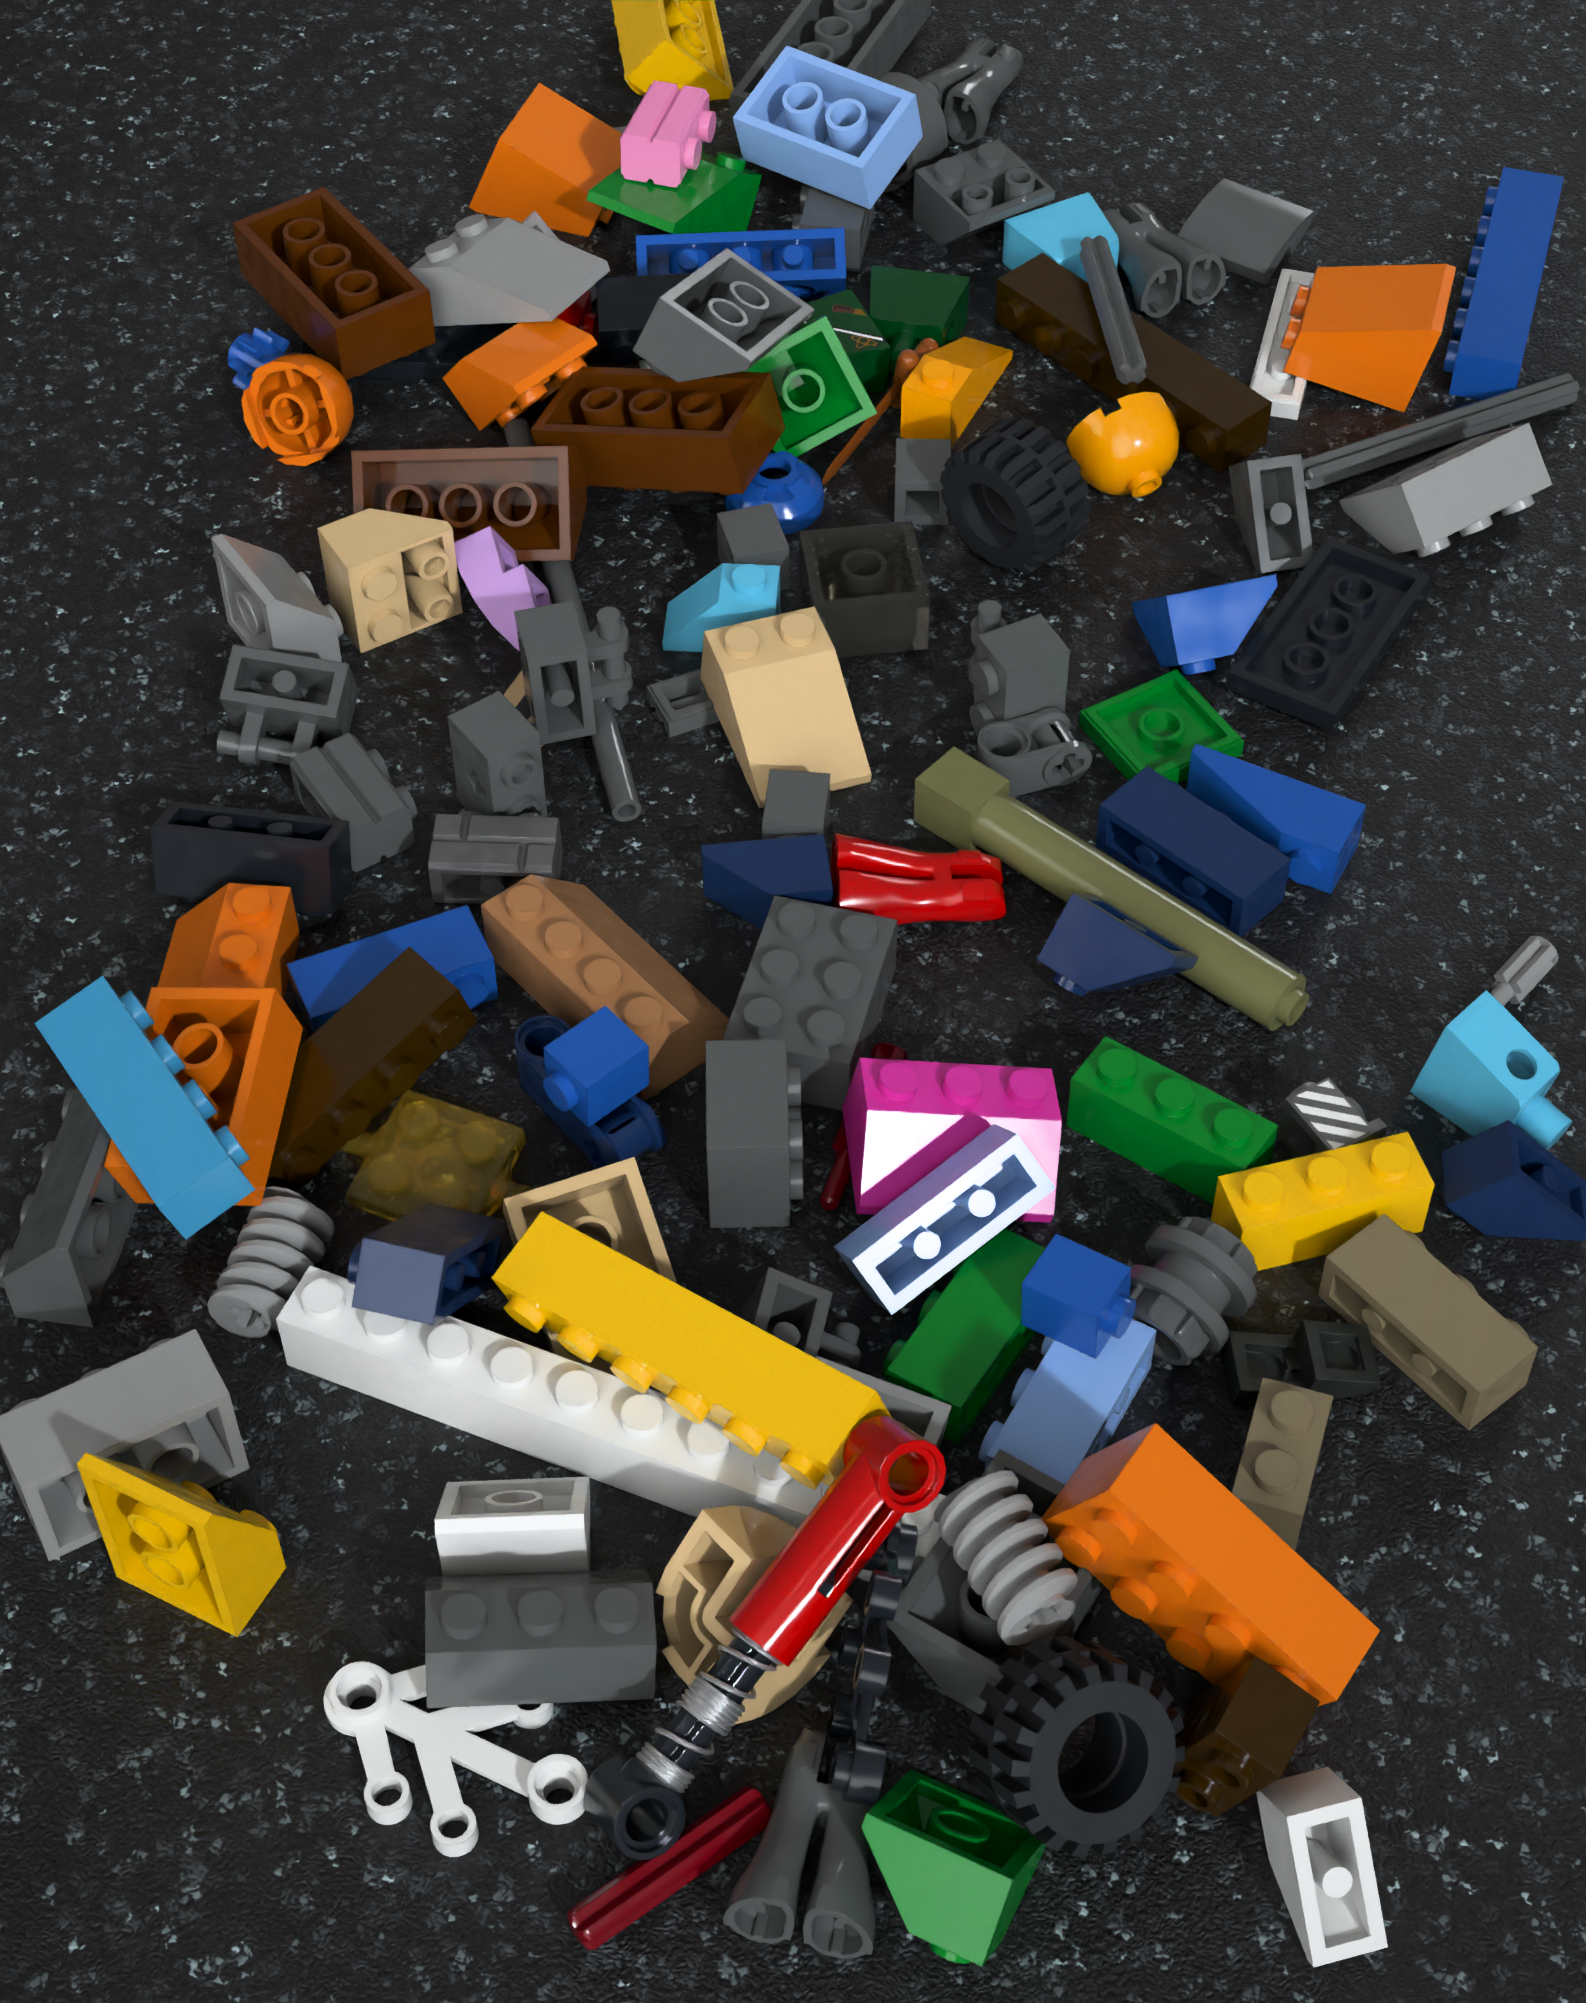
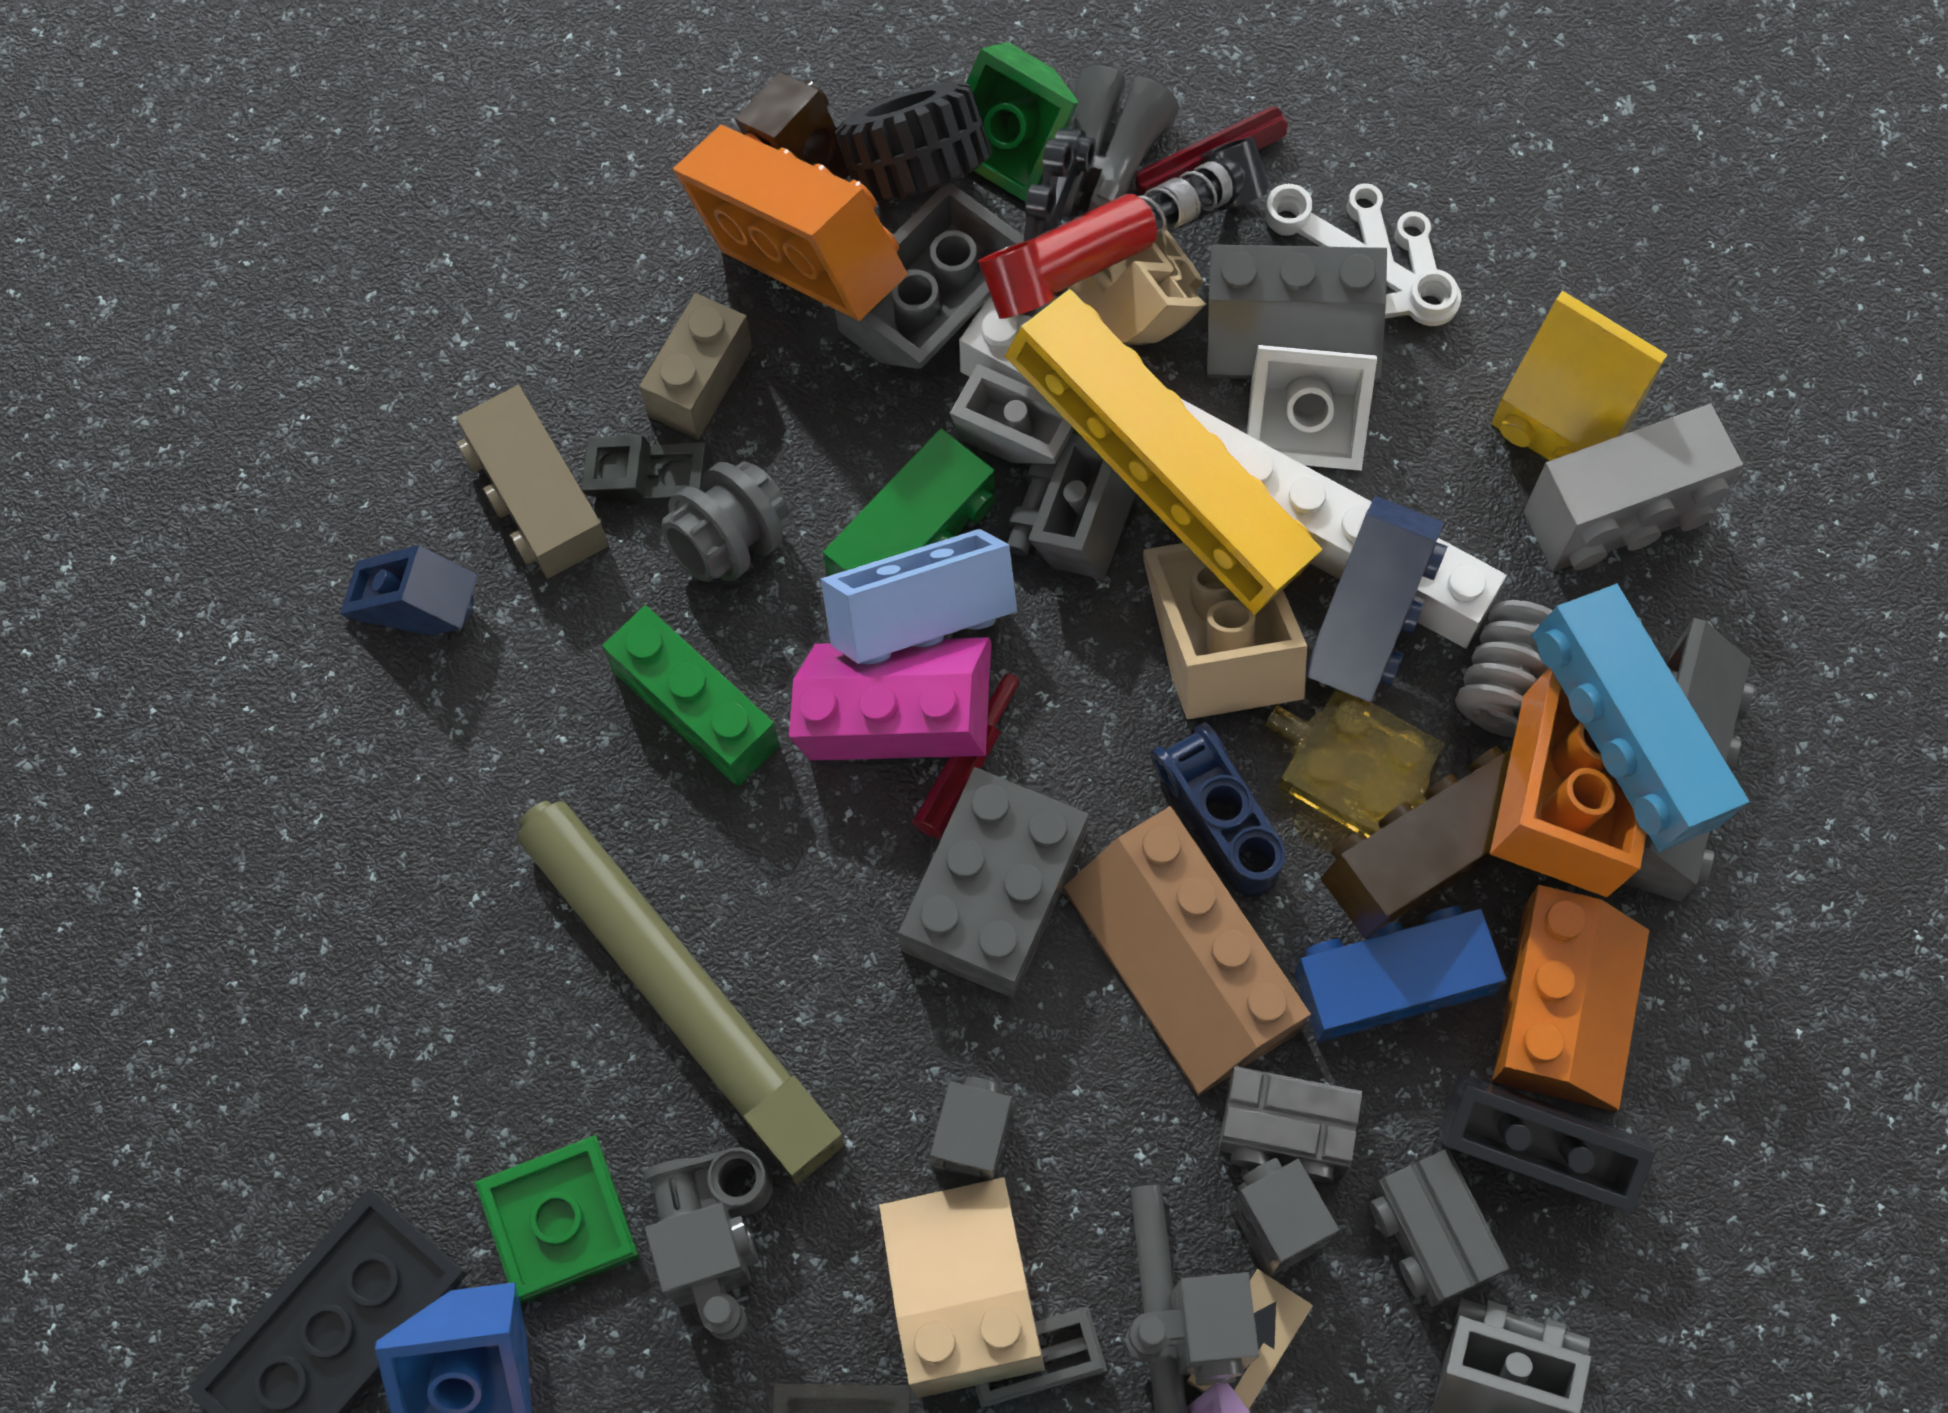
camera: 170 degrees left, 20 degrees up
(595, 1067) = (1213, 777): blue brick -> none
(752, 872) = (1006, 1043): dark blue slope -> none
(752, 1133) = (1077, 706): dark grey brick -> none
(915, 884) = (908, 1054): red piece -> none
(1004, 1557) = (938, 247): light grey piece -> none
(1071, 1403) = (851, 442): light blue brick -> none
(1077, 1296) = (825, 482): blue brick -> none
(1107, 949) = (690, 886): dark blue slope -> none
(1192, 851) = (574, 1026): dark blue brick -> none
(1297, 818) = (466, 1041): blue slope -> none
(1323, 1199) = (579, 595): yellow brick -> none
(1323, 1864) = (748, 72): white slope -> none
(1324, 1119) = (549, 674): flat silver brick -> none
(1492, 1073) = (384, 682): medium azure torso -> none
(1524, 970) = (317, 831): light grey axle -> none

